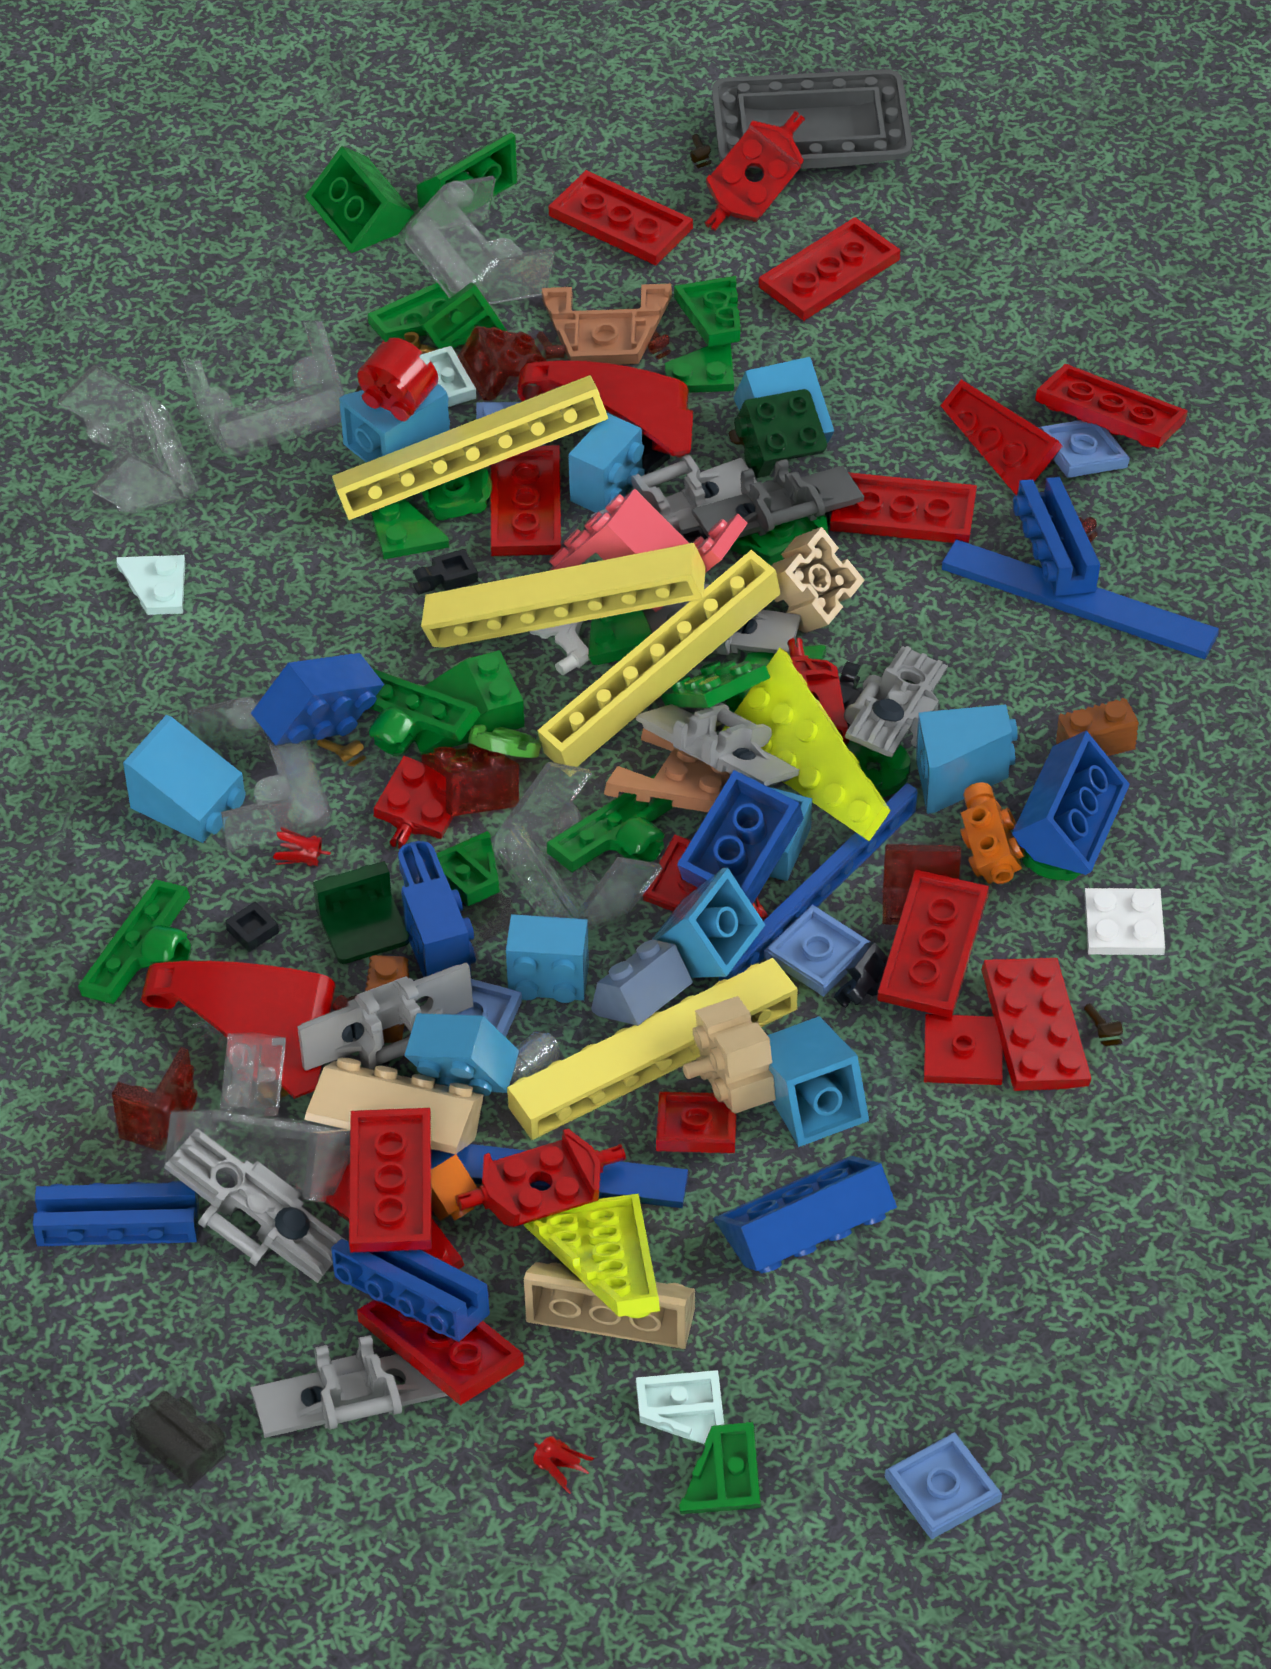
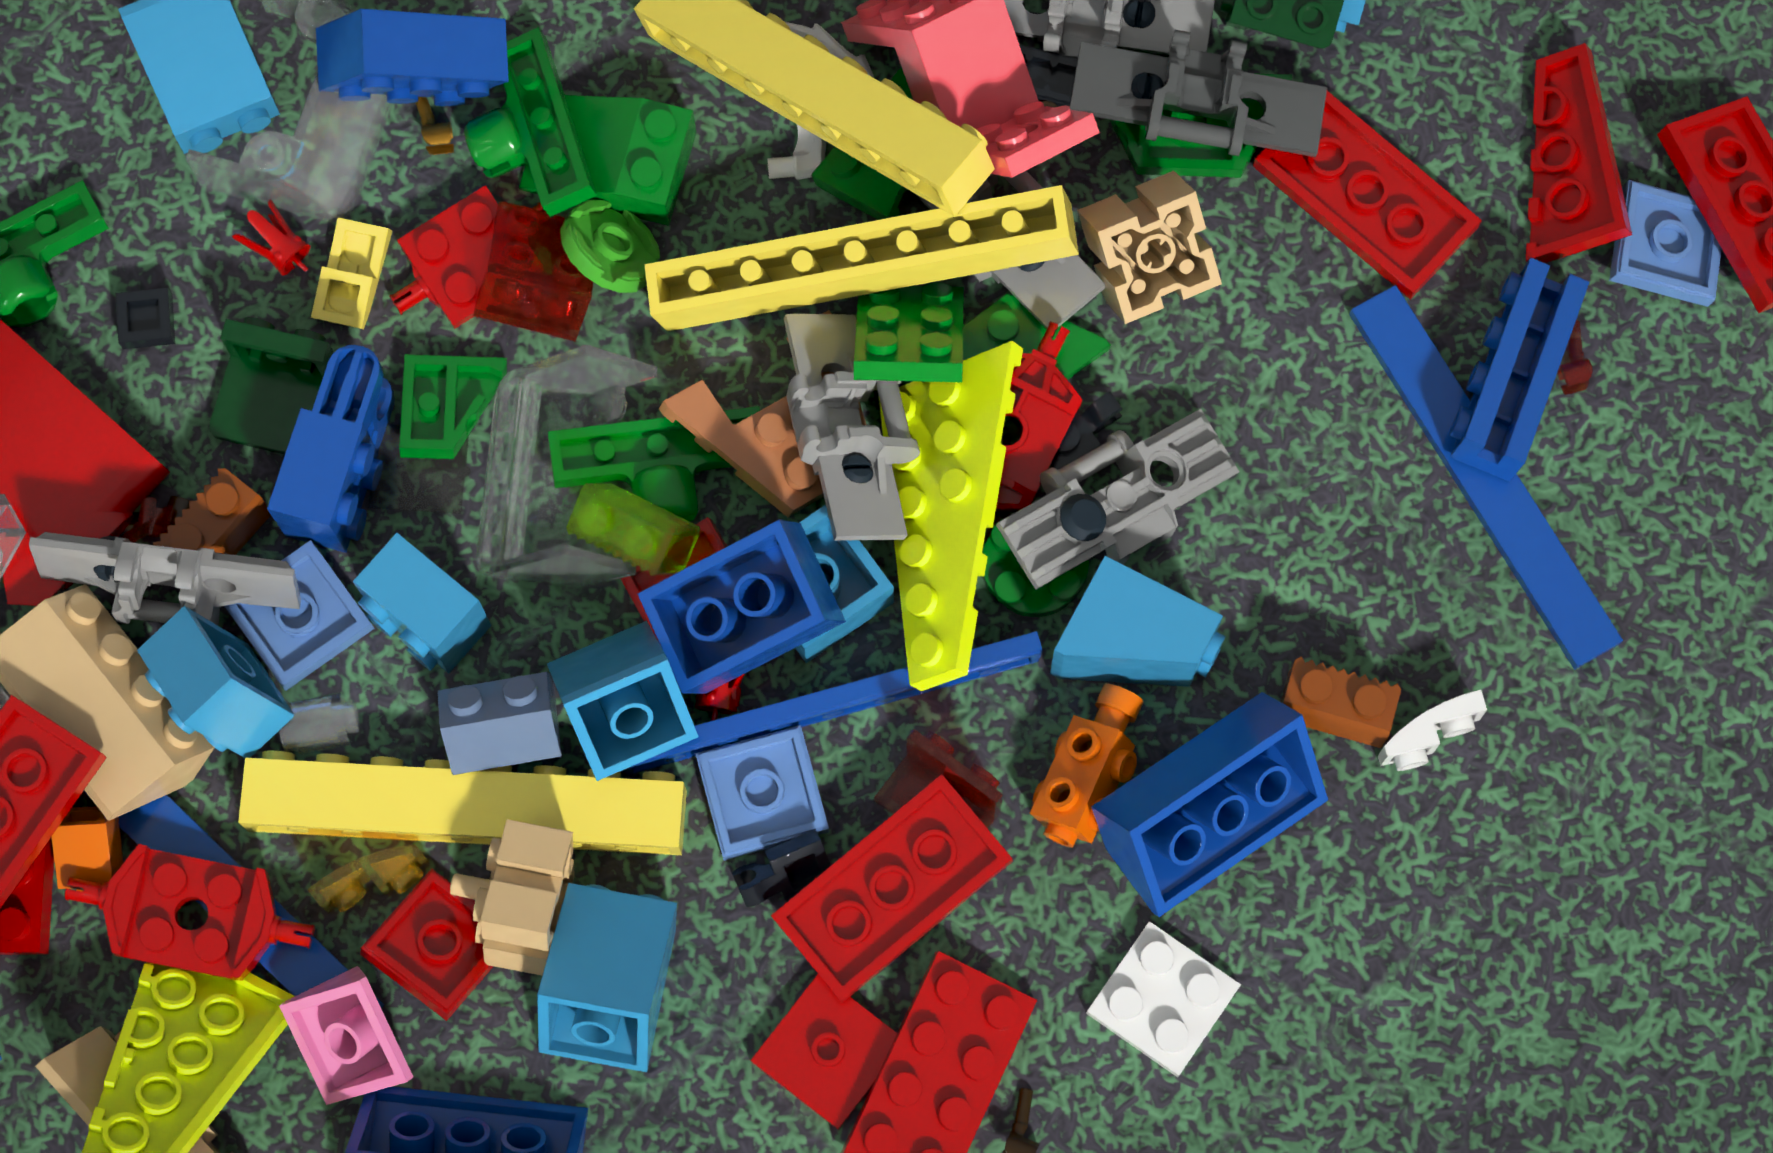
camera: 35 degrees right, 25 degrees up
(356, 839) = (352, 273): none -> light yellow slope
(628, 1109) = (389, 870): none -> clear yellow slope
(649, 843) = (632, 529): none -> clear neon green brick
(689, 1182) = (345, 1038): none -> bright pink slope
(1157, 713) = (1420, 737): none -> white slope

